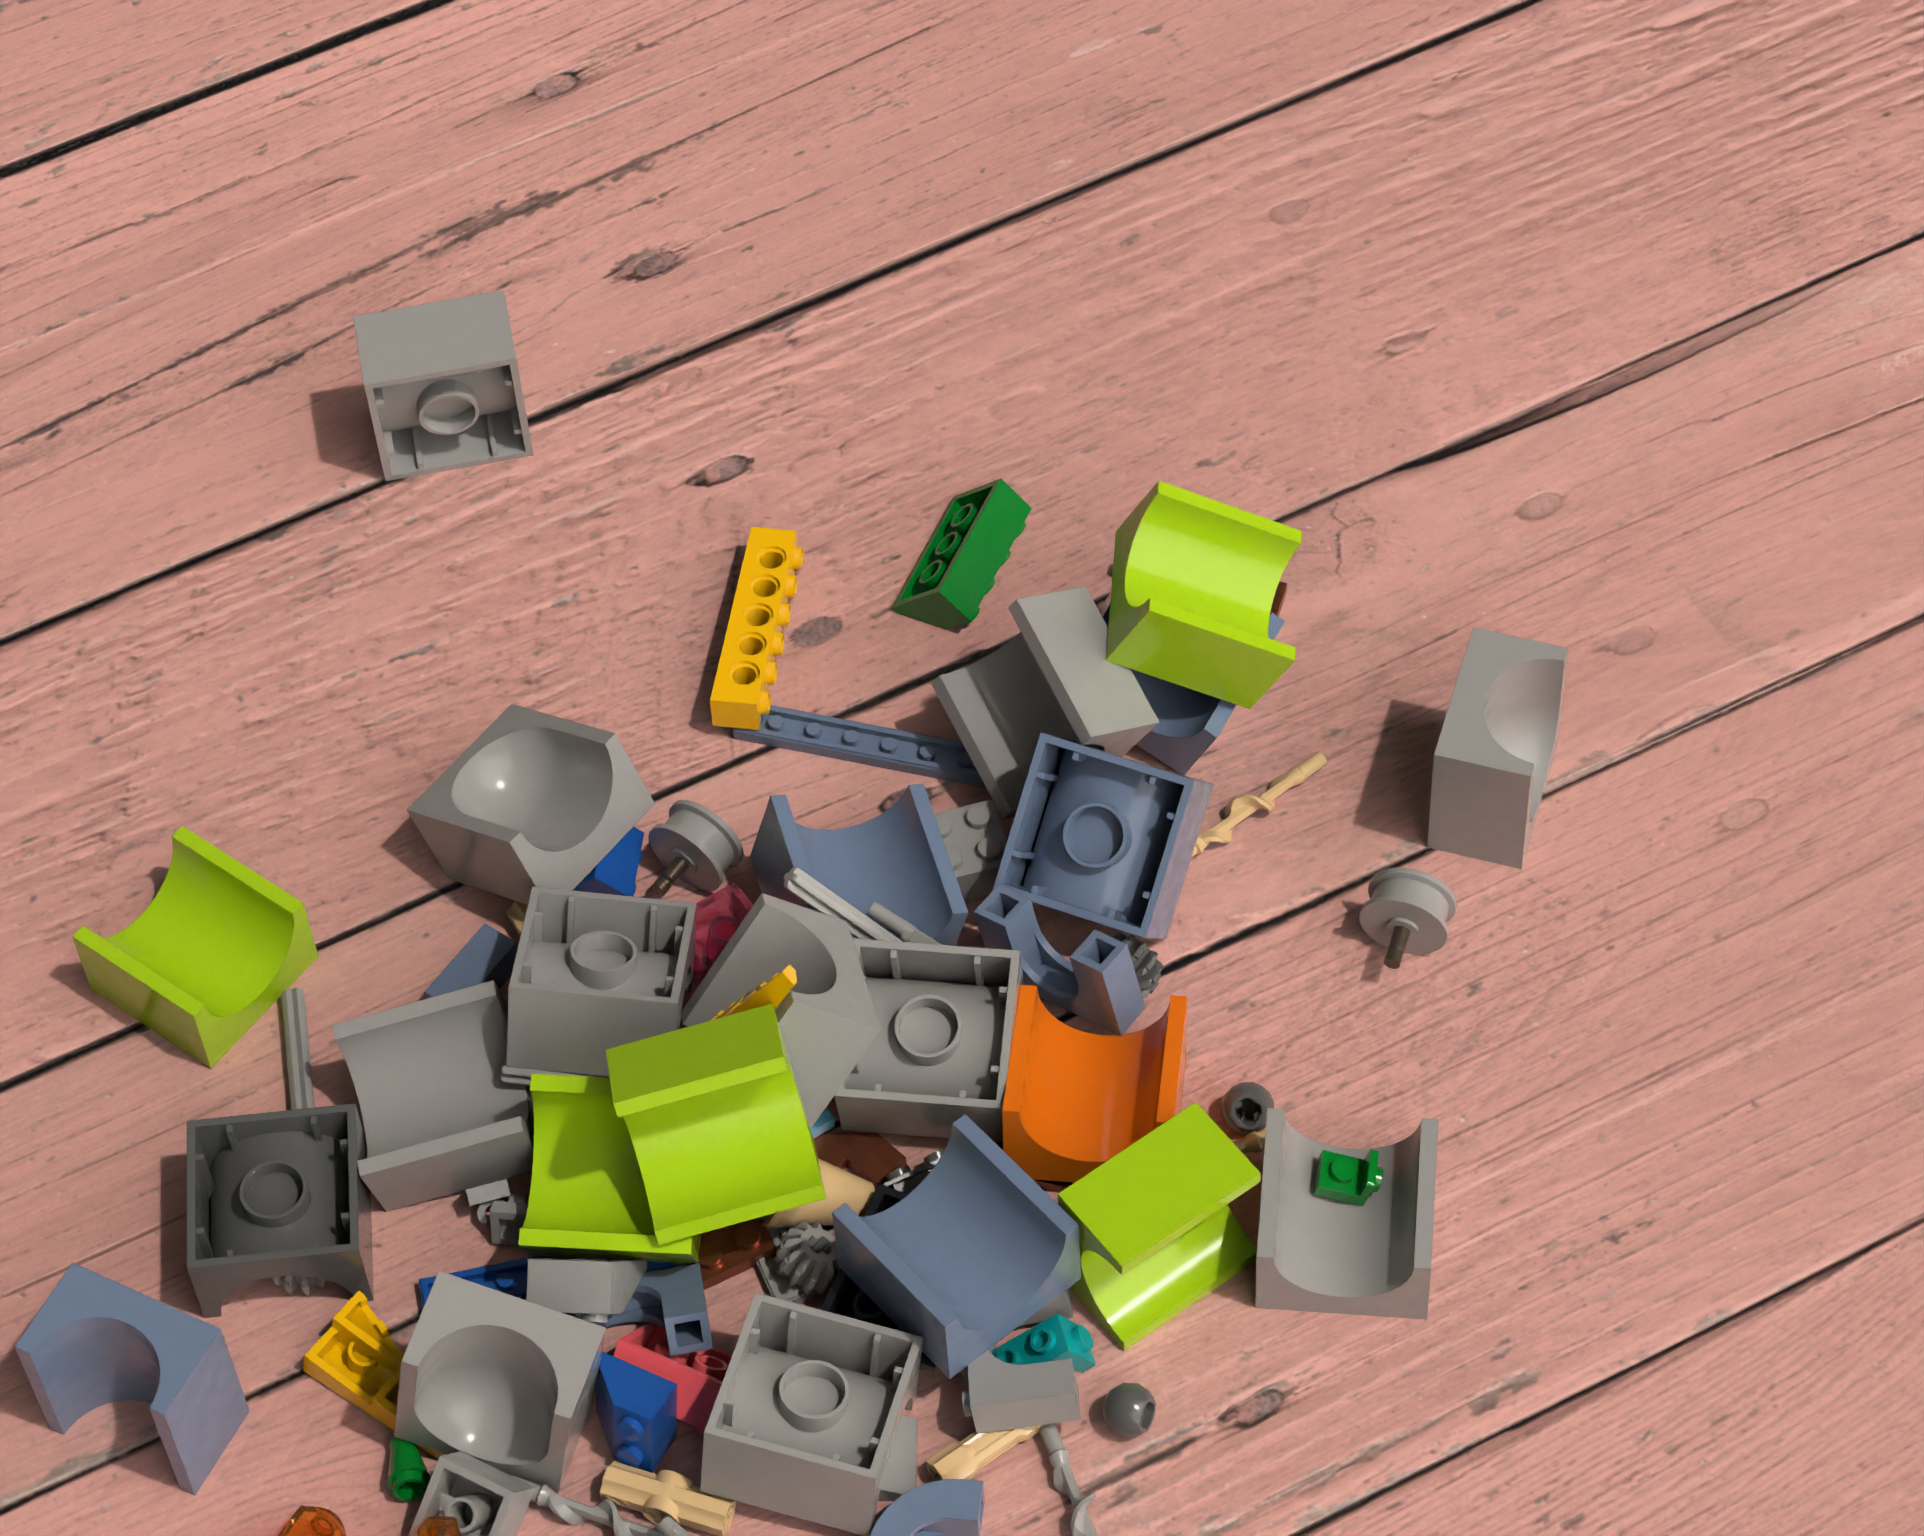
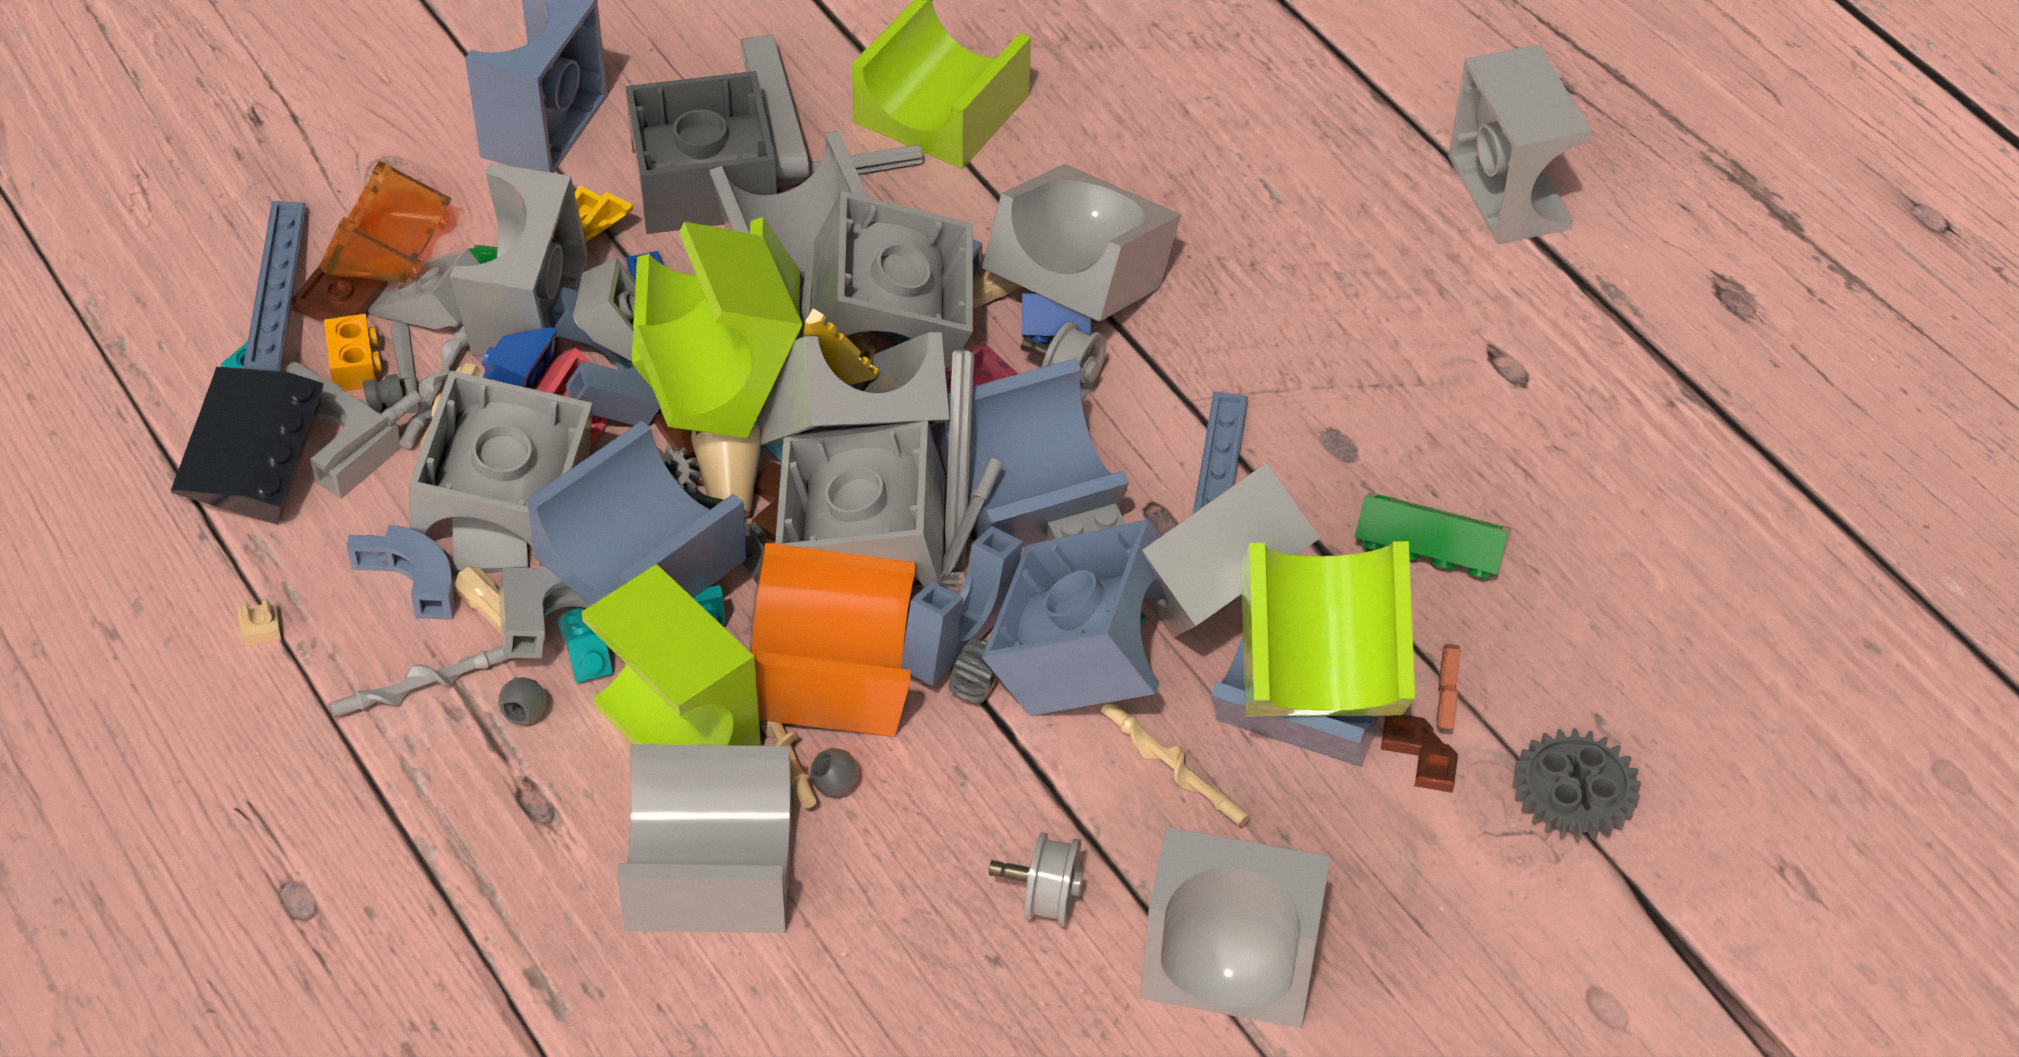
camera: 80 degrees right, 5 degrees down
(151, 1143) = (788, 147): none -> light grey beam
(755, 628) = (1320, 389): yellow brick -> none
(1296, 482) = (1604, 777): none -> dark grey gear
(1348, 1177) = (745, 835): green bracket -> none

